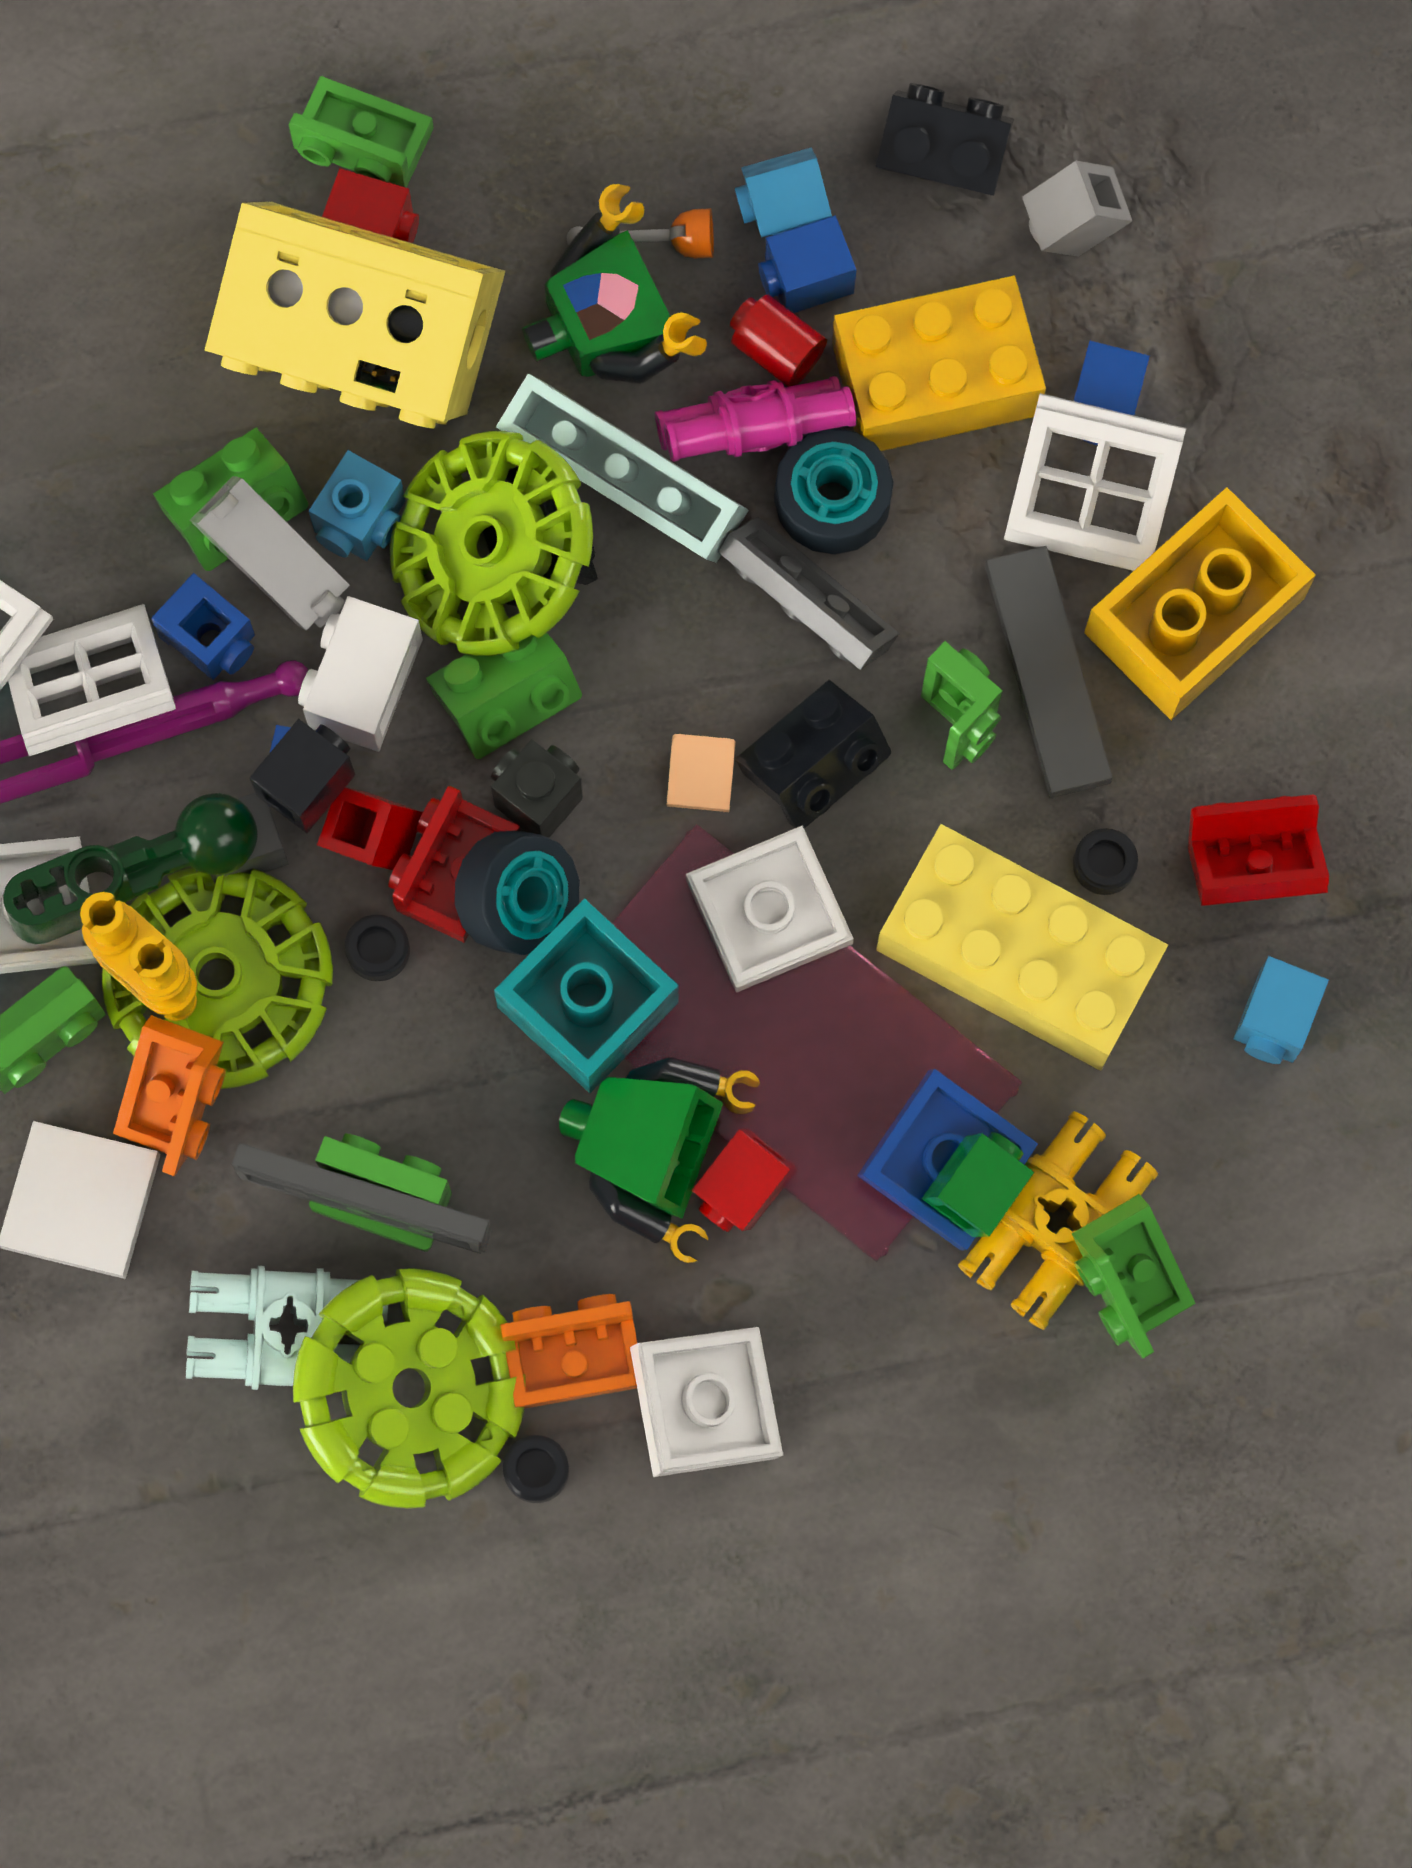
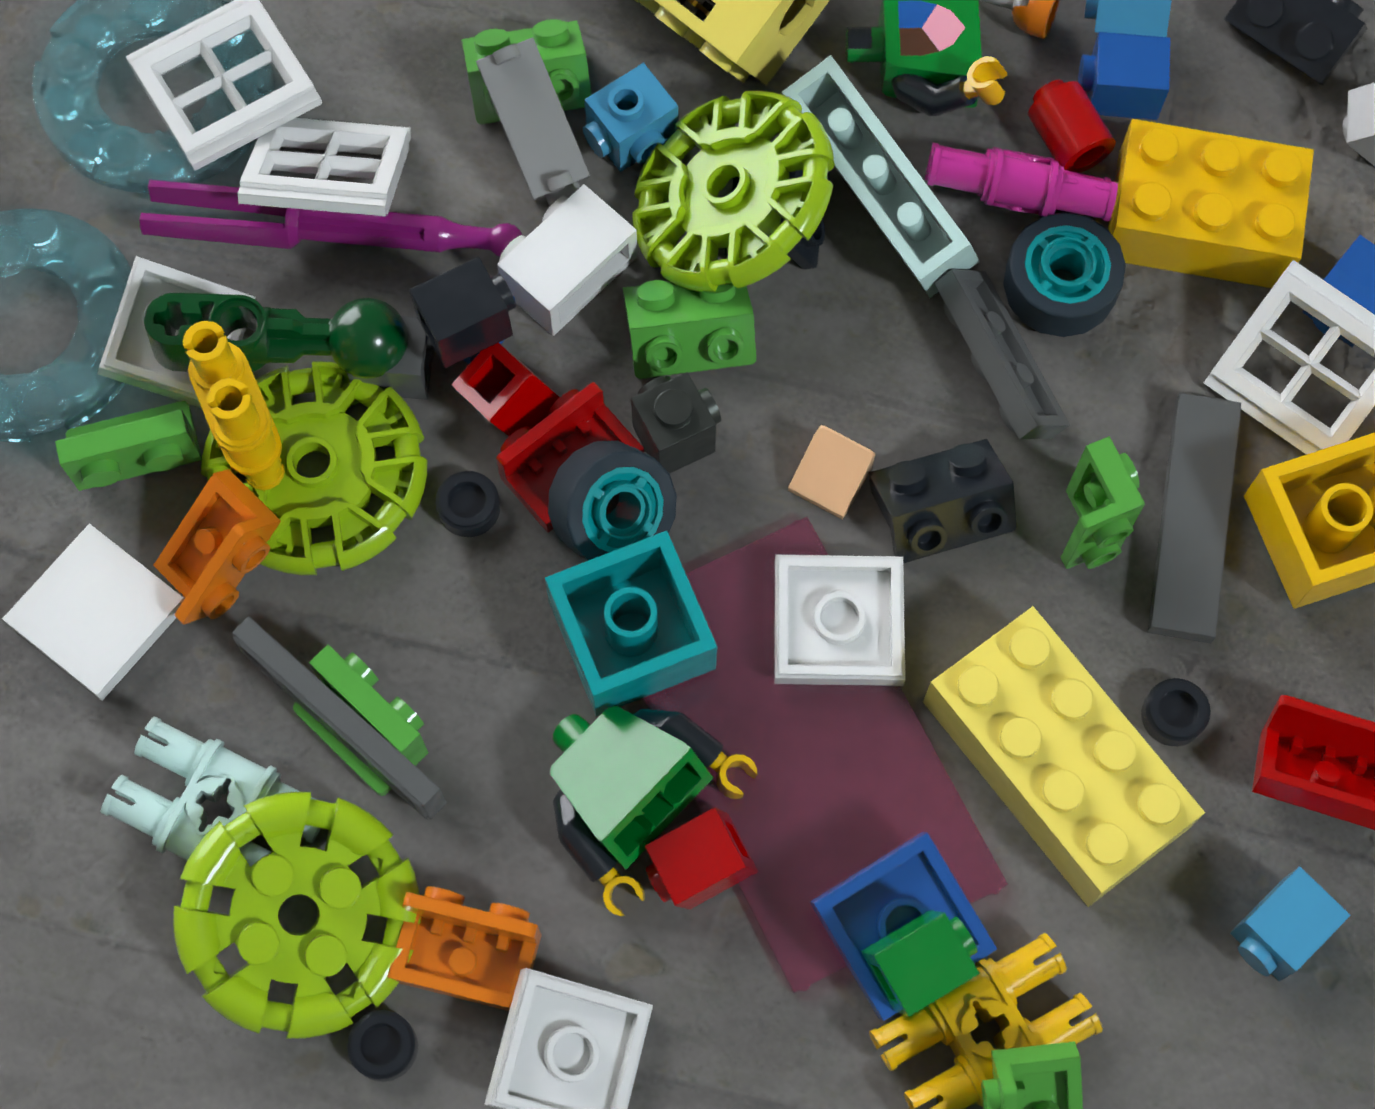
camera: 25 degrees right, 5 degrees down
(195, 611) = (449, 165): blue brick -> none

